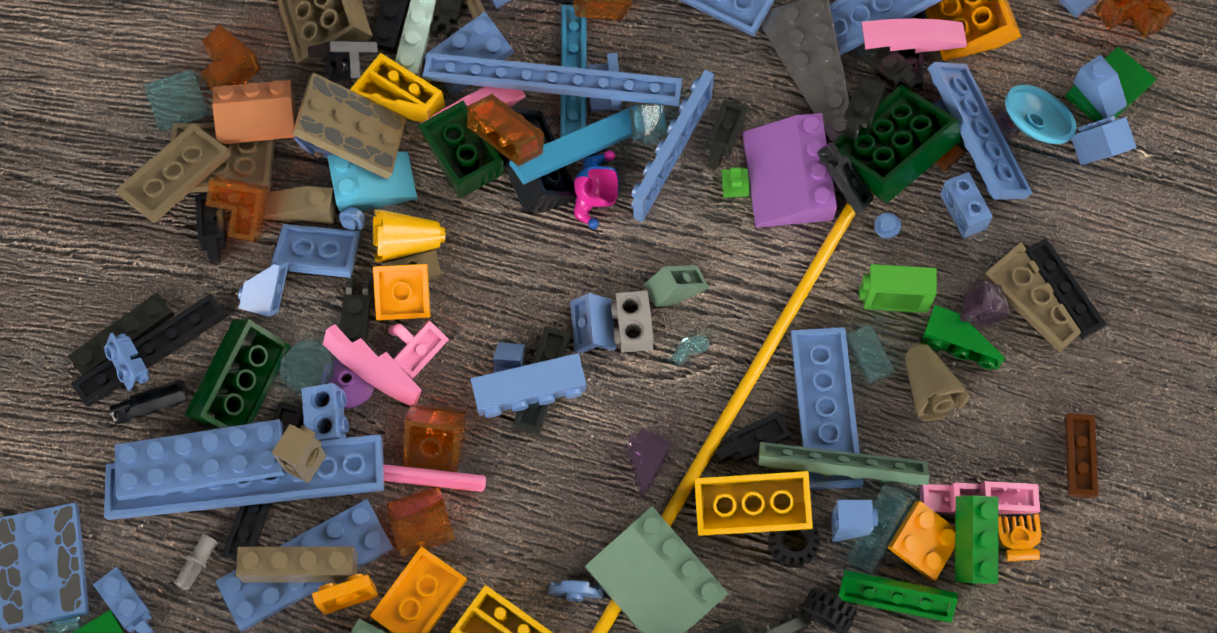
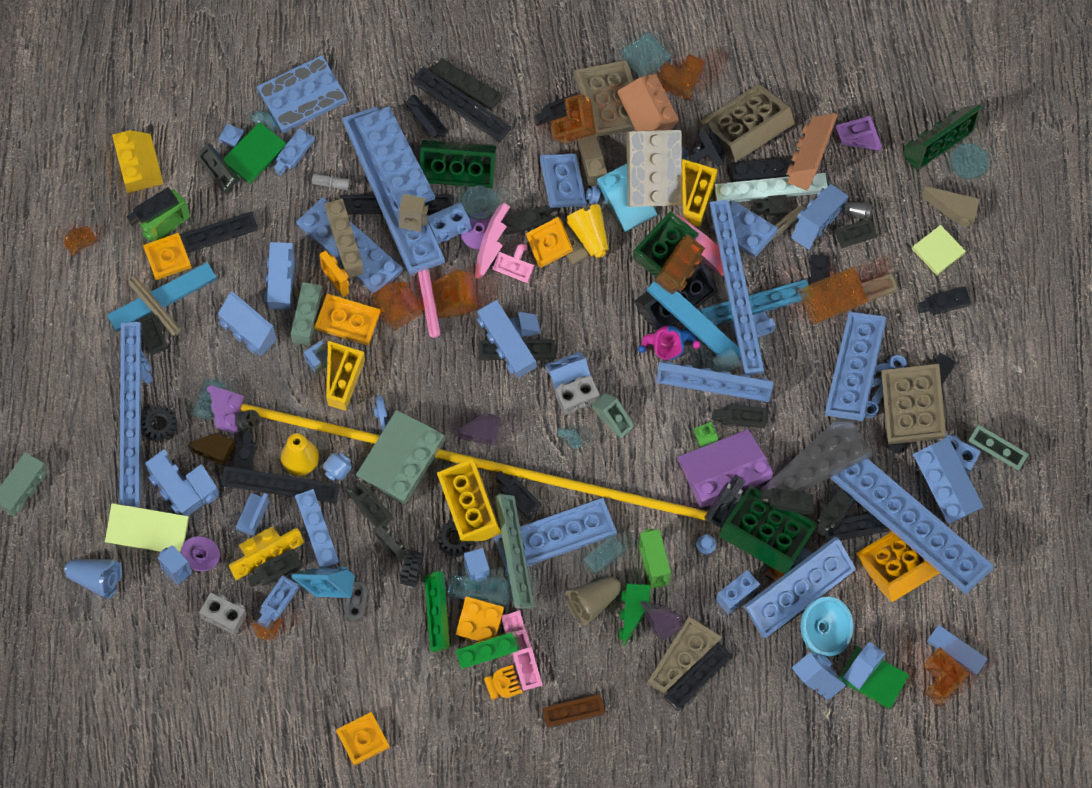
camera: 70 degrees right, 0 degrees up
(120, 351) = (452, 86): medium blue hinge -> none
(173, 172) = (585, 72): dark tan plate -> none
(264, 291) = (521, 158): slope -> none
(920, 34) = (860, 521): bright pink slope -> none

